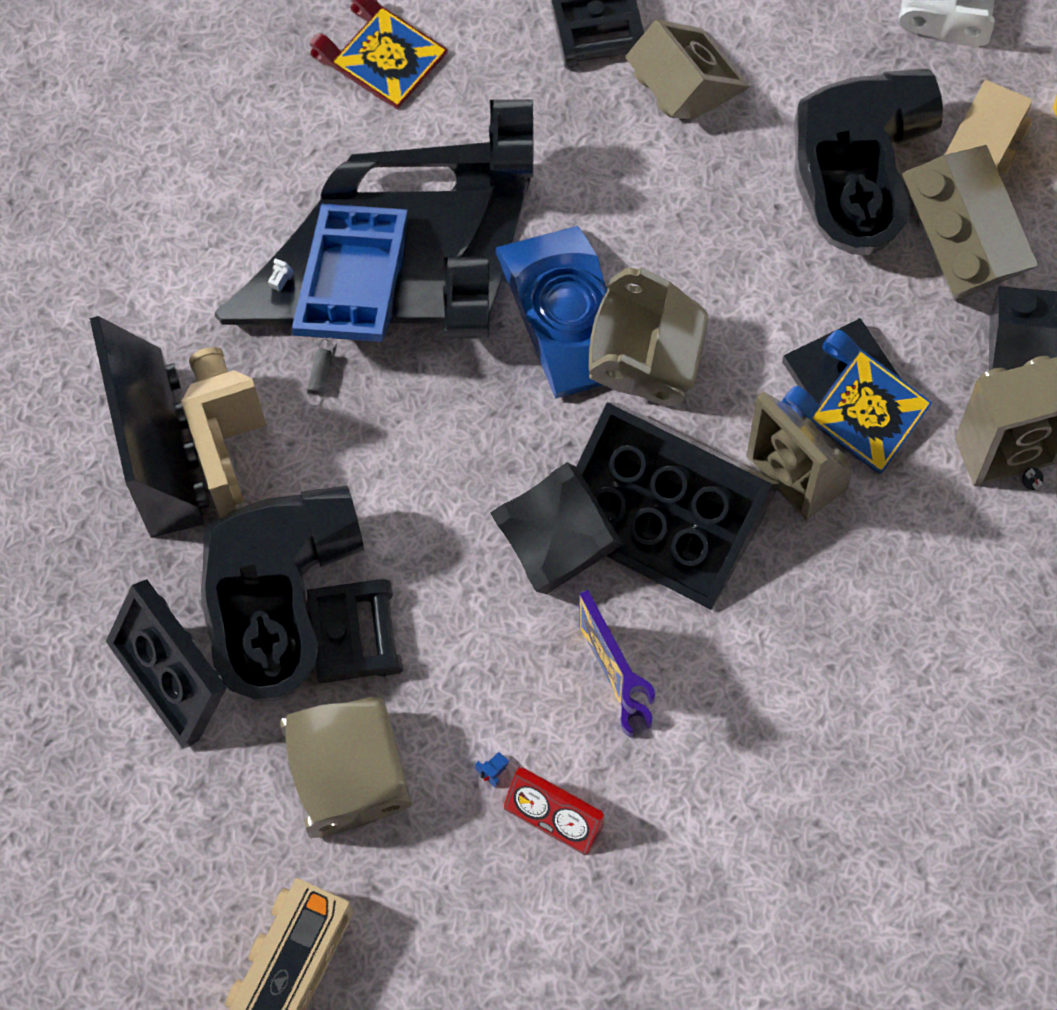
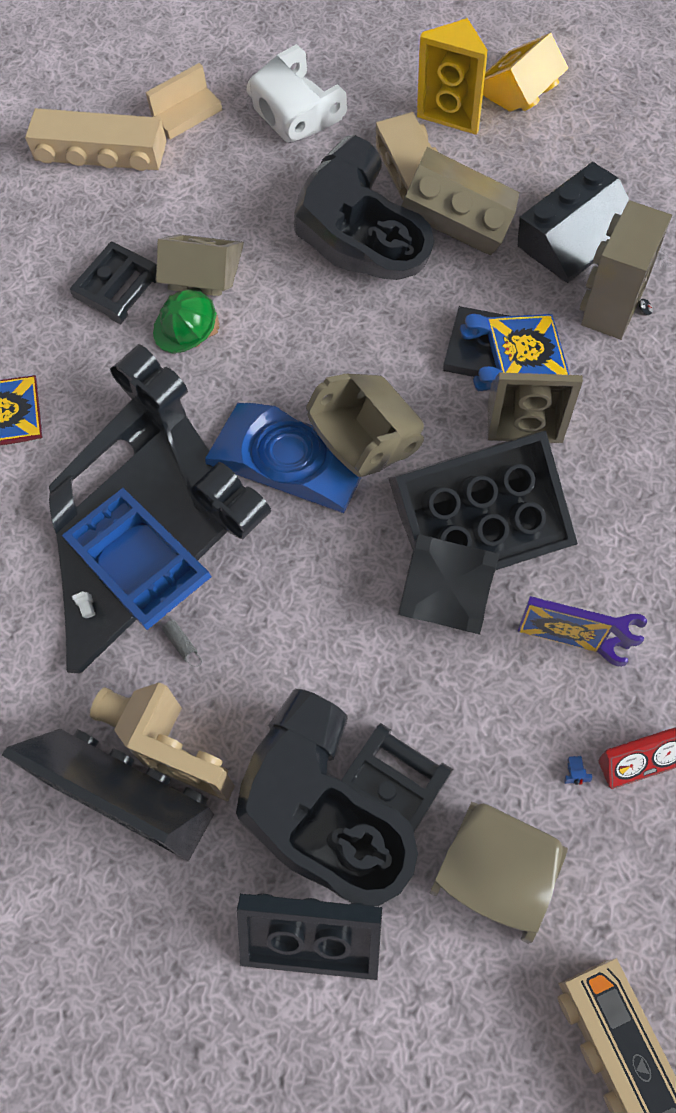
camera: 45 degrees left, 0 degrees up
(614, 115) = (185, 321): none -> green piece

